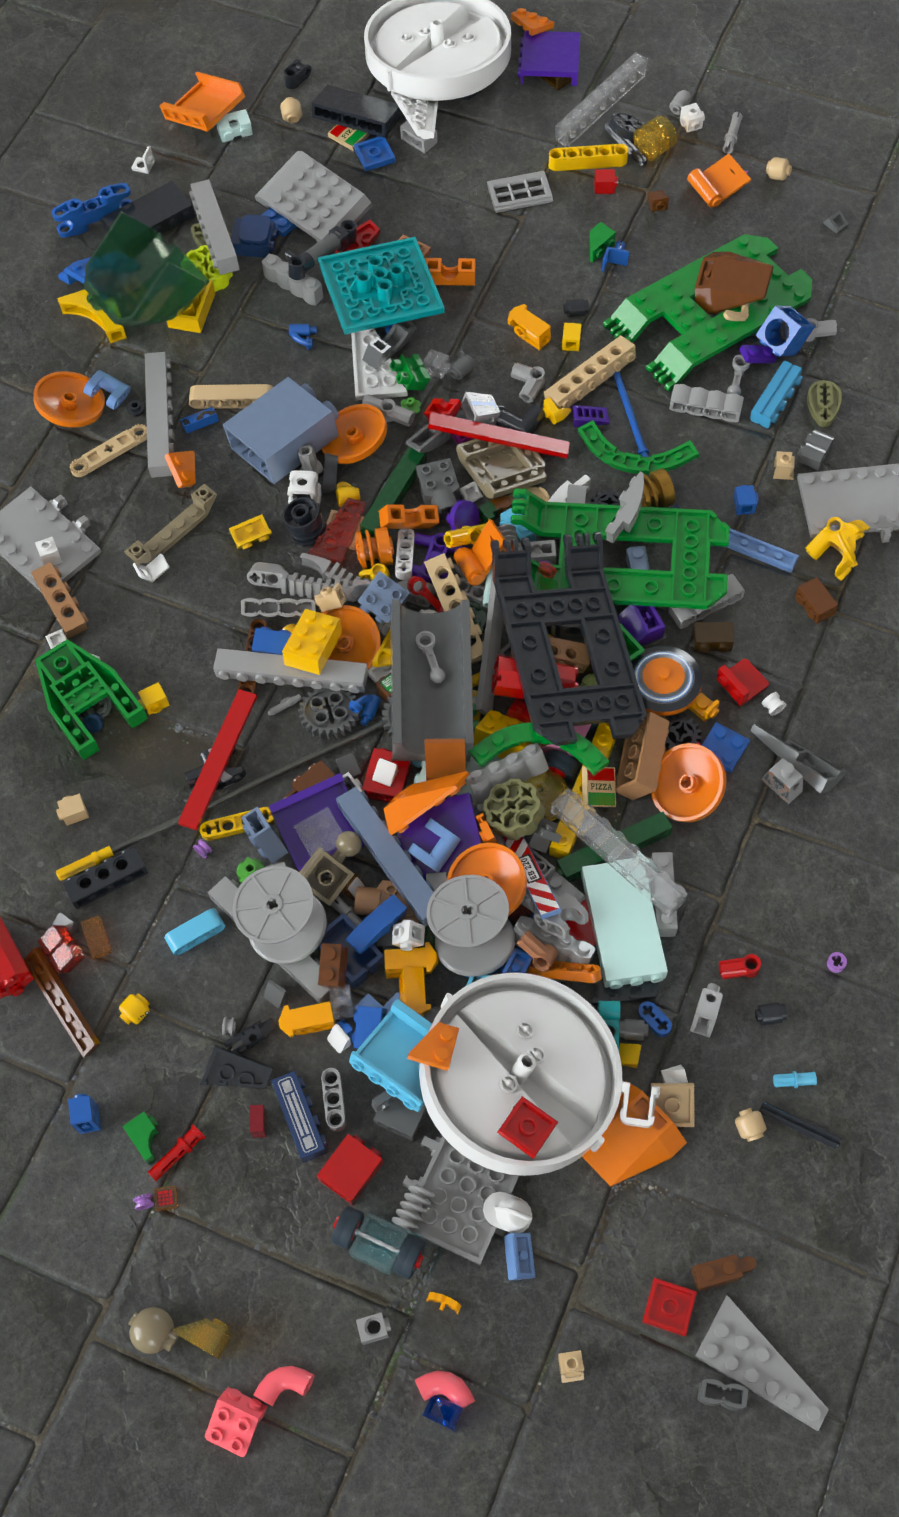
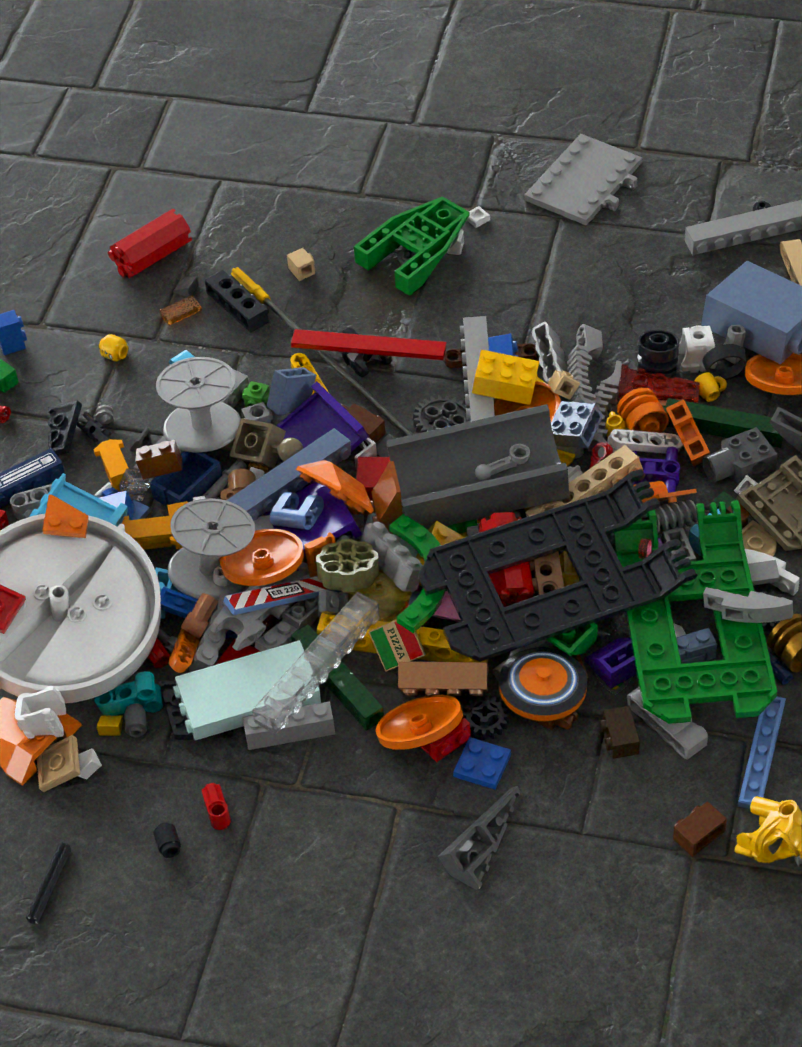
camera: 80 degrees right, 15 degrees down
(48, 551) = (564, 181): white brick -> none
(56, 945) = (167, 281): clear red piece -> none
(61, 1002) = (108, 304): reddish brown plate -> none
(62, 400) = (748, 156): orange dish -> none
(71, 625) = (515, 202): medium nougat brick -> none
(93, 722) = (393, 258): dark blue tile -> none
(99, 456) = (696, 197): tan piece -> none
(117, 388) = (777, 189): medium blue connector -> none
(153, 569) = (572, 262): white bracket -> none
(153, 699) = (428, 292): yellow brick -> none
(182, 467) = (698, 254): orange wing -> none
(199, 420) = (764, 257): blue slope -> none
(202, 502) = (586, 247): dark tan slope -> none
(202, 848) = (278, 360): medium lavender bush -> none
(250, 531) = (636, 320): yellow bracket -> none
(258, 1121) = (15, 450): dark red piece -> none
(285, 703) = (449, 390): light grey piece -> none
(318, 831) = (305, 428): clear plate -> none
(377, 924) = (207, 483): blue slope -> none
(385, 772) = (376, 467): white slope -> none
(463, 514) = (707, 480): dark purple tile -> none
(463, 536) = (676, 479): yellow piece -> none
(658, 1015) = (153, 742): blue beam -> none
(705, 707) = (528, 738): light orange bracket -> none
(707, 1010) = (161, 777): light grey torso -> none
(742, 681) = (567, 766): red bracket -> none
(750, 1124) = (43, 834): tan head -> none
(774, 704) = (546, 801): white wheel -> none
(784, 780) = (446, 818): light grey torso -> none
(795, 1079) = (97, 872): medium azure axle -> none
(843, 961) = (235, 893): medium lavender bush -> none

